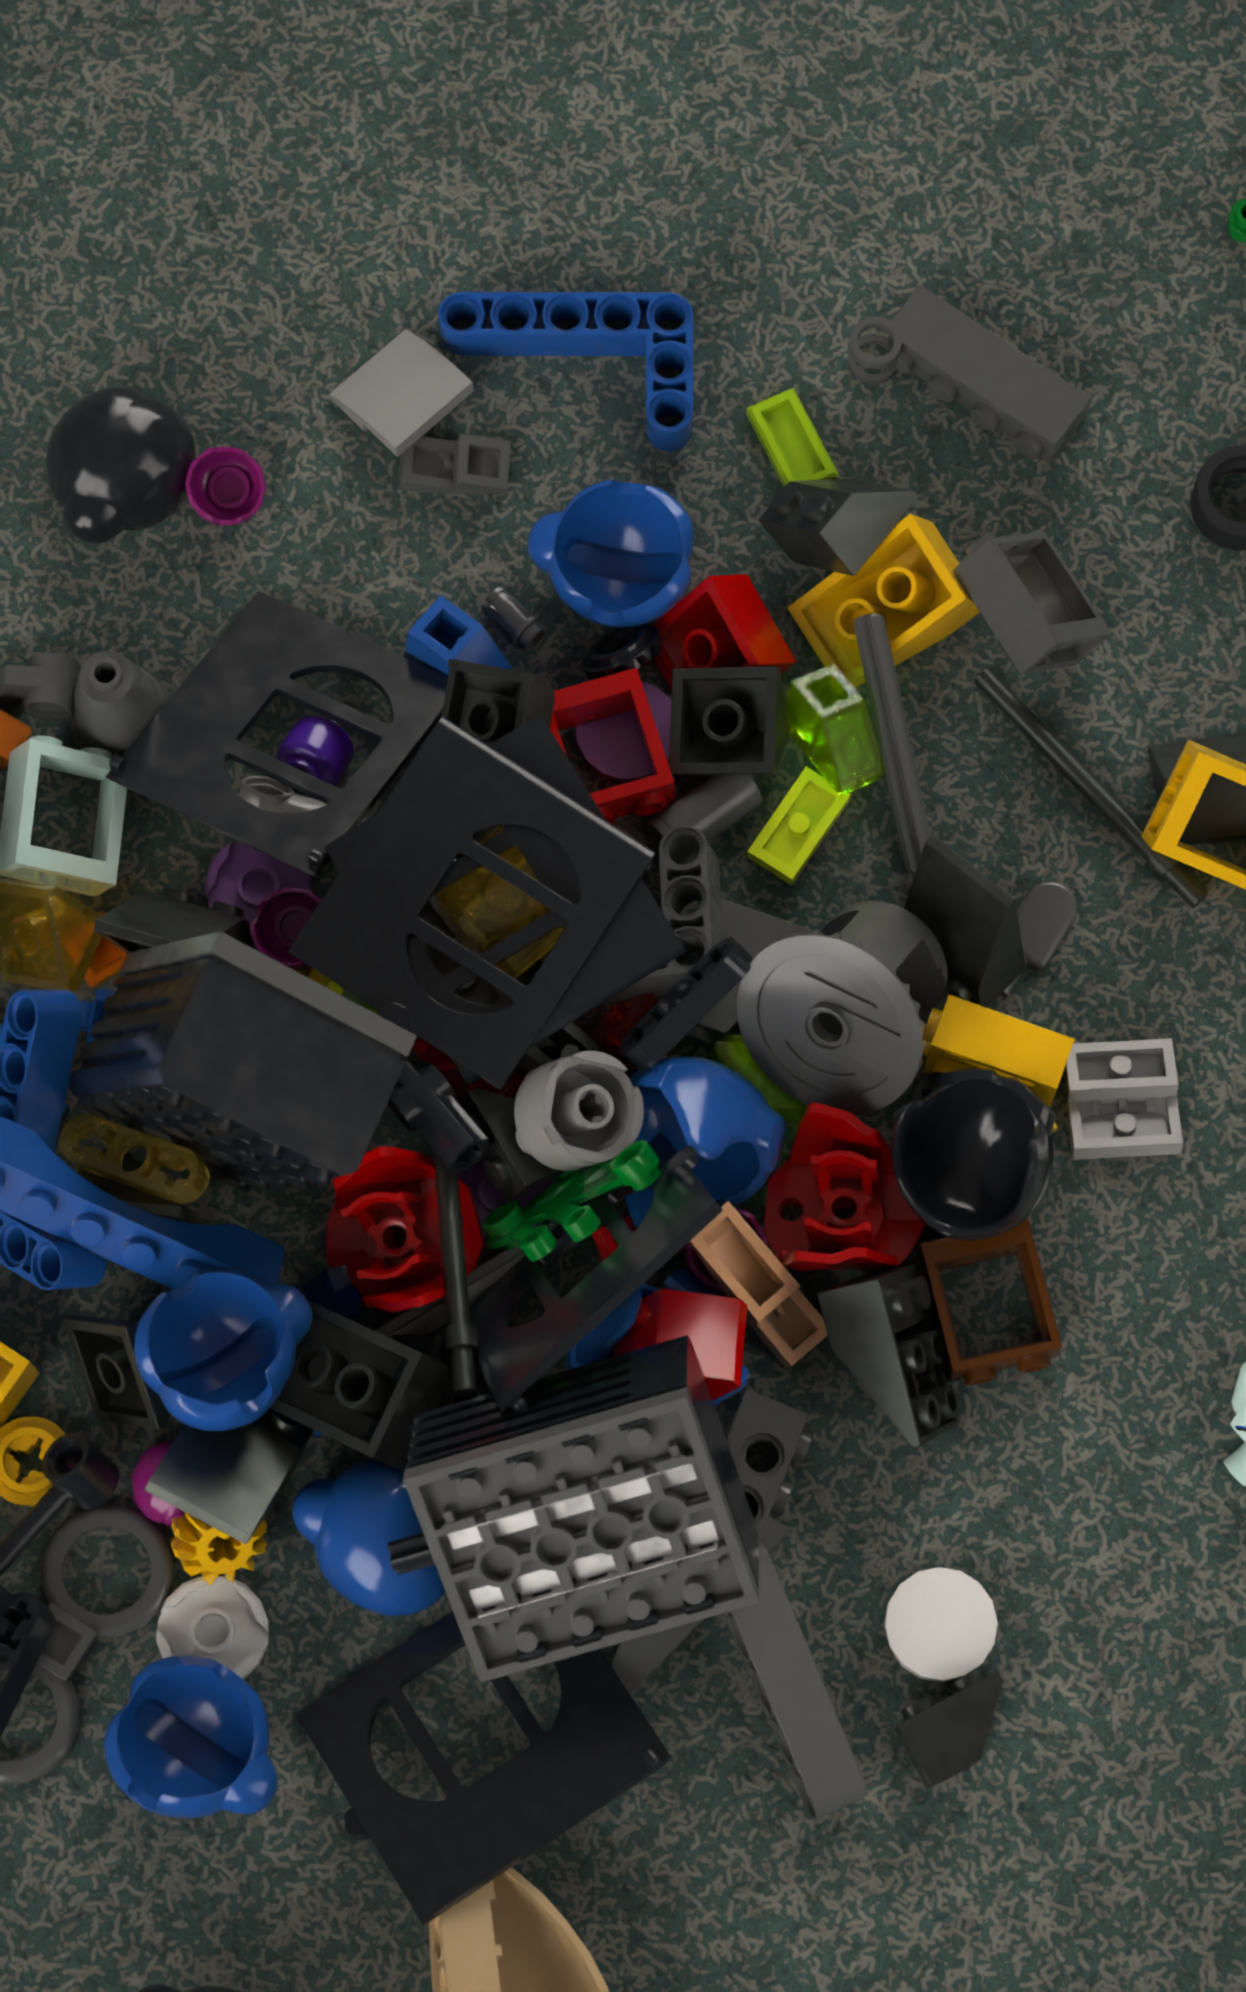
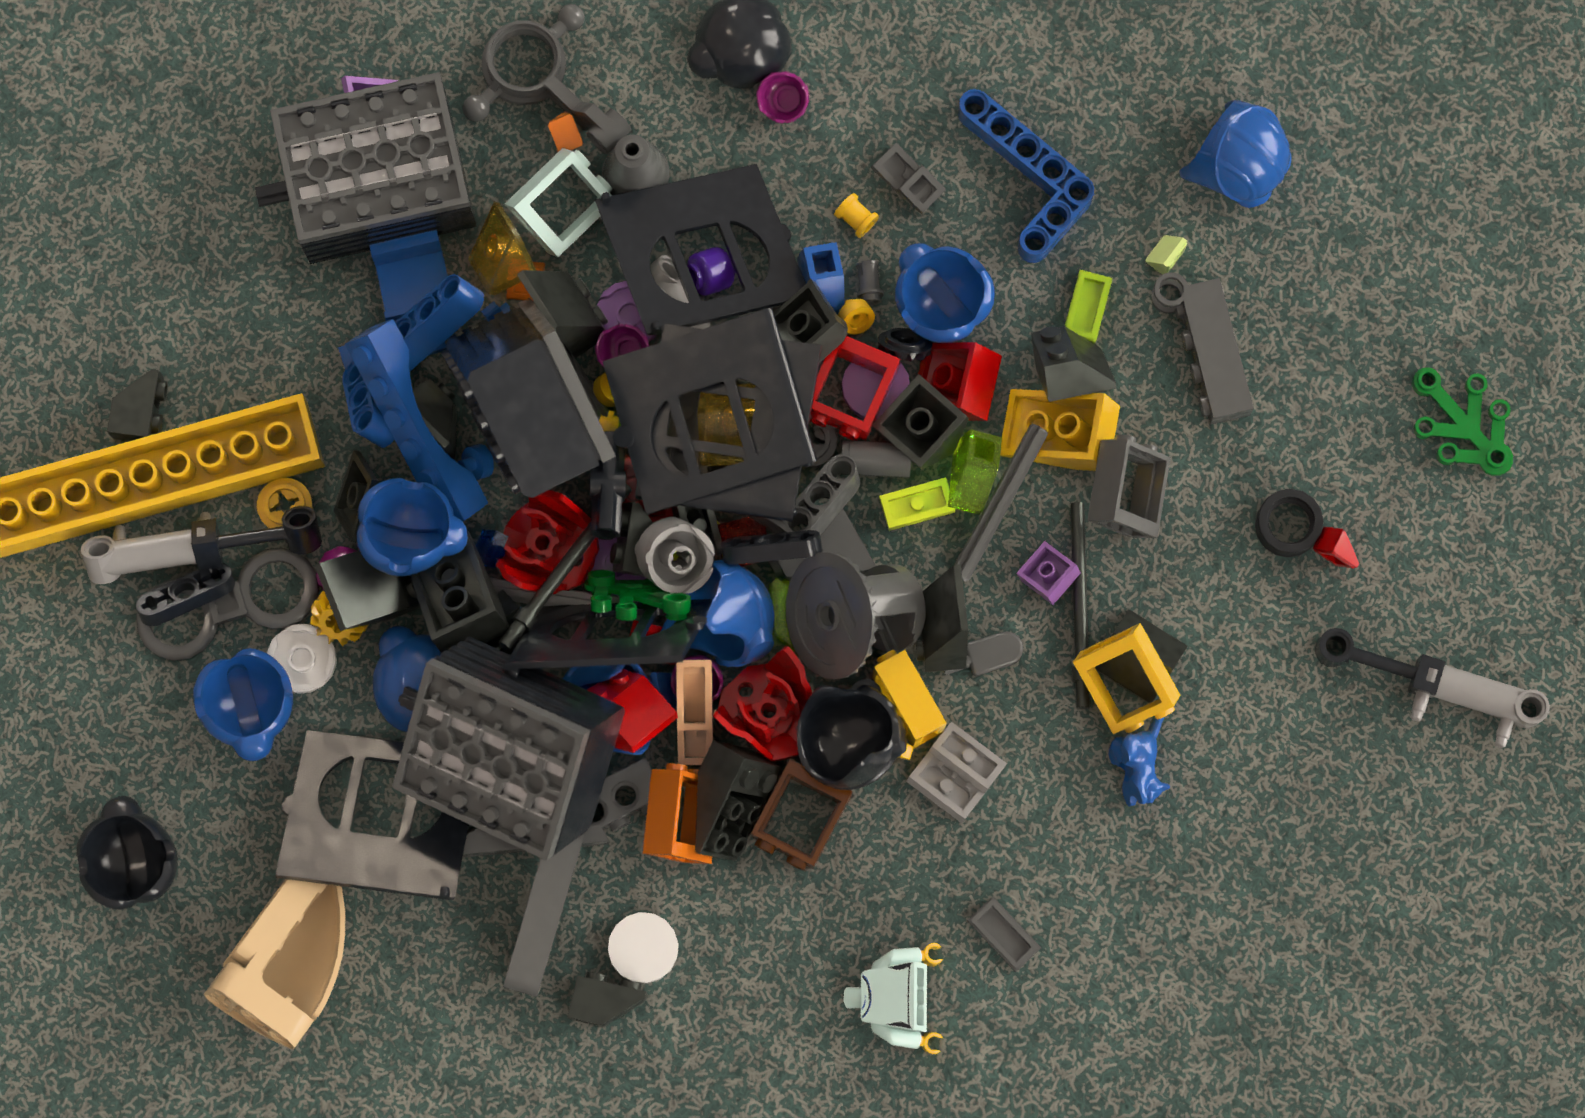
camera: 40 degrees right, 5 degrees up
(148, 1176) = (446, 415): clear yellow beam -> none
(227, 1204) = (478, 460): none -> blue tile
(402, 391) = (913, 119): light grey slope -> none
(431, 553) = (856, 215): none -> yellow bush
(537, 659) = (857, 315): none -> yellow tile
(826, 127) = (1242, 155): none -> blue piece
(829, 310) = (1166, 253): none -> yellowish green slope
(846, 1426) = (664, 814): none -> orange window
(1023, 777) = (1048, 573): none -> medium lavender piece

